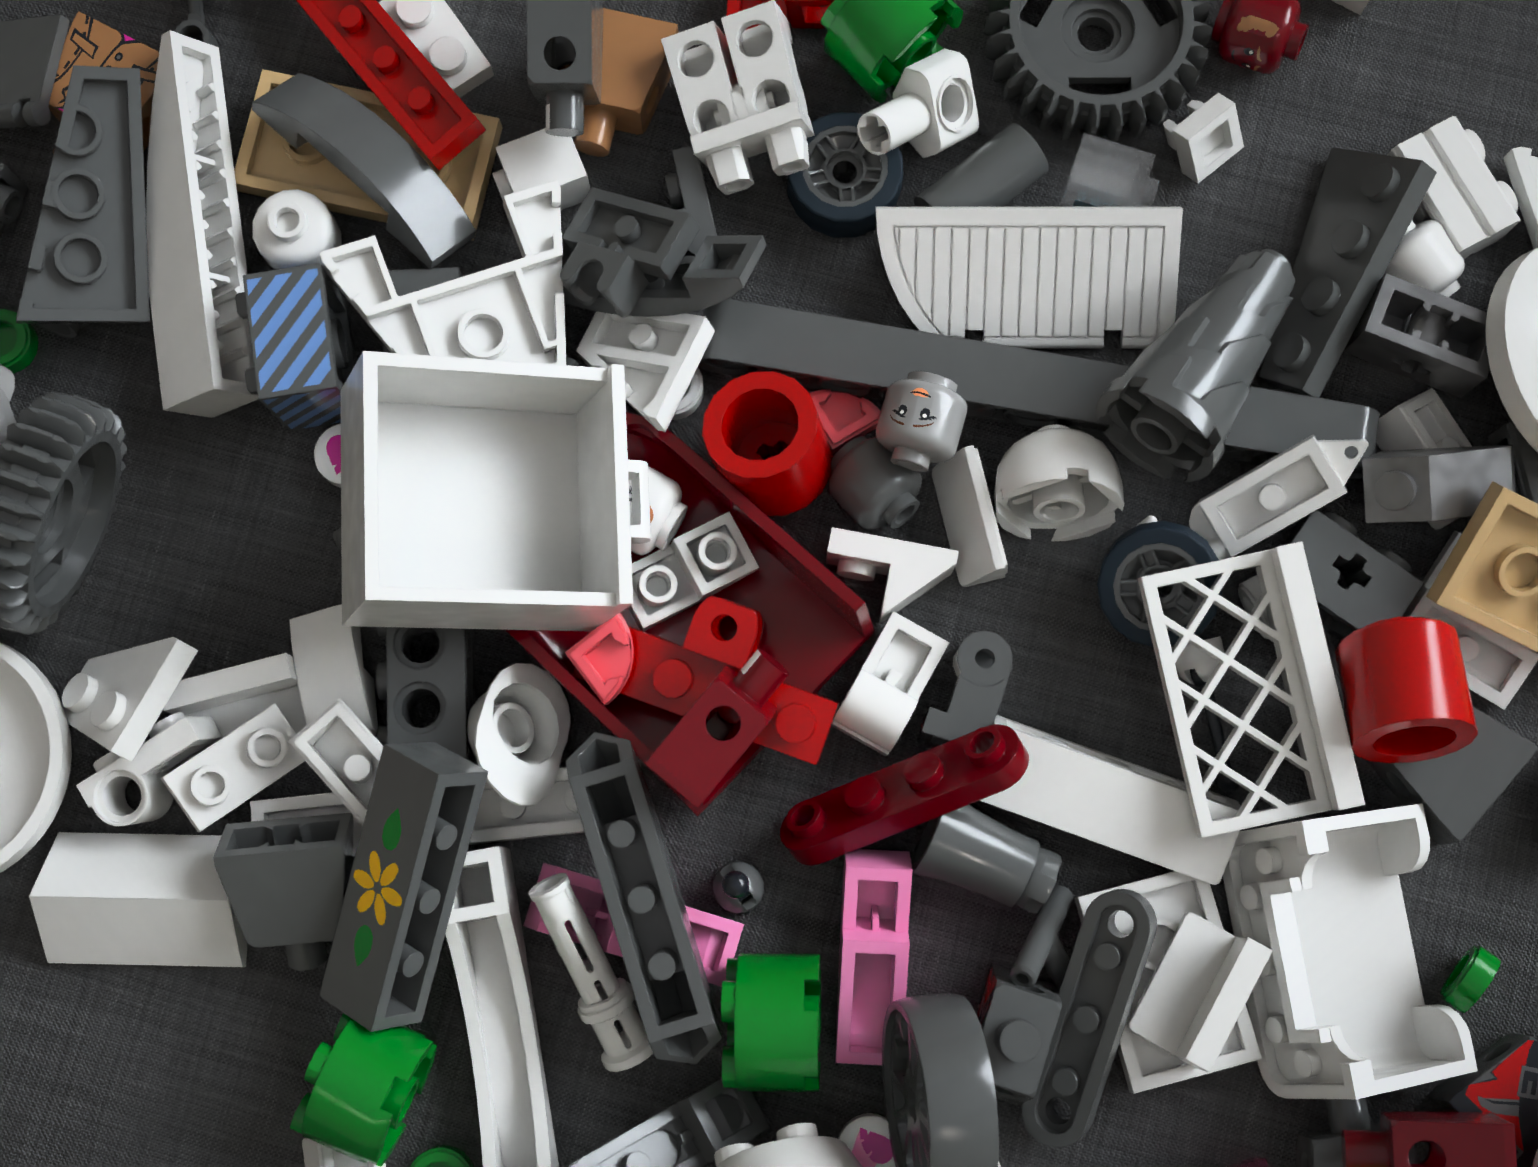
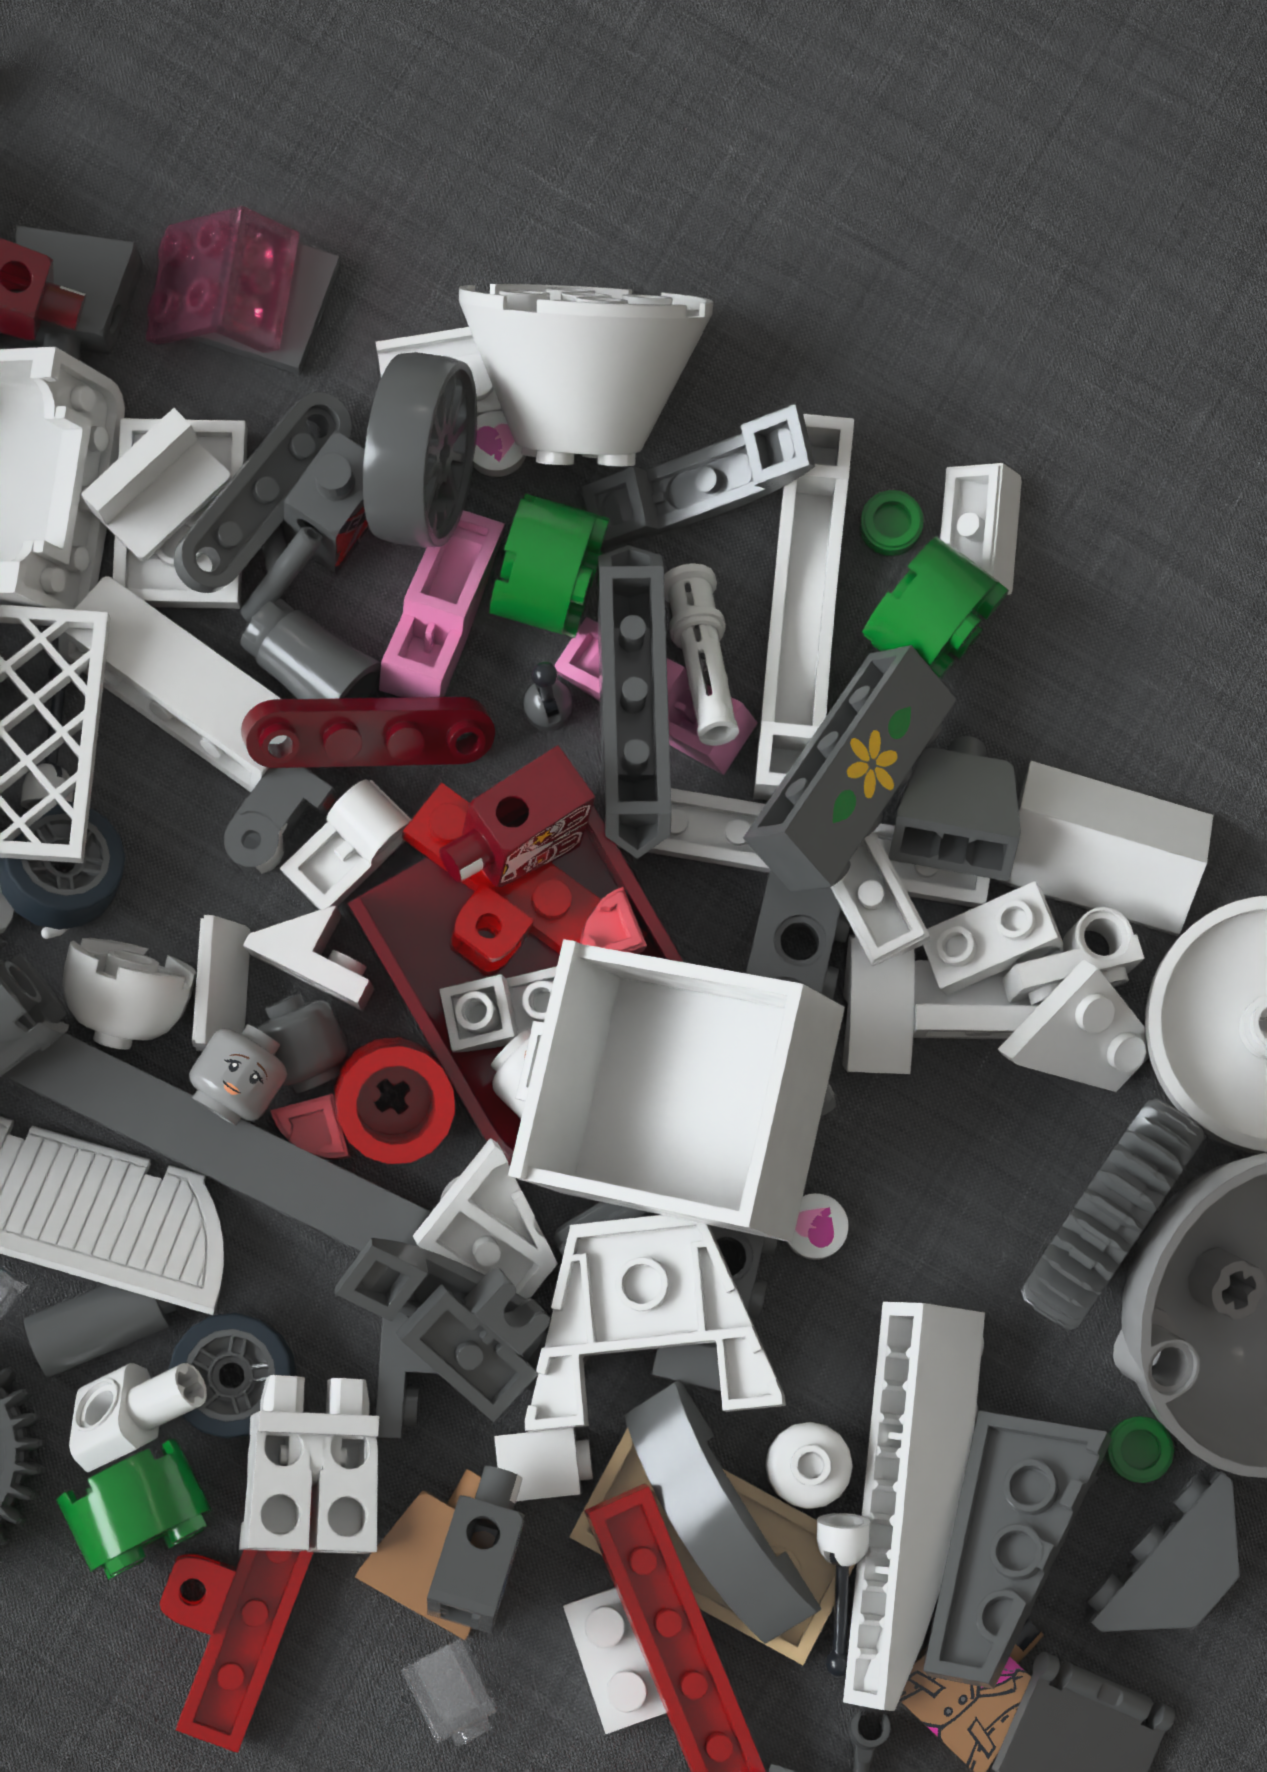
camera: 165 degrees left, 0 degrees up
(253, 166) = (843, 1542): none -> hinge
(297, 344) = (830, 1330): dark grey container -> none
(520, 733) = (714, 891): white piece -> none

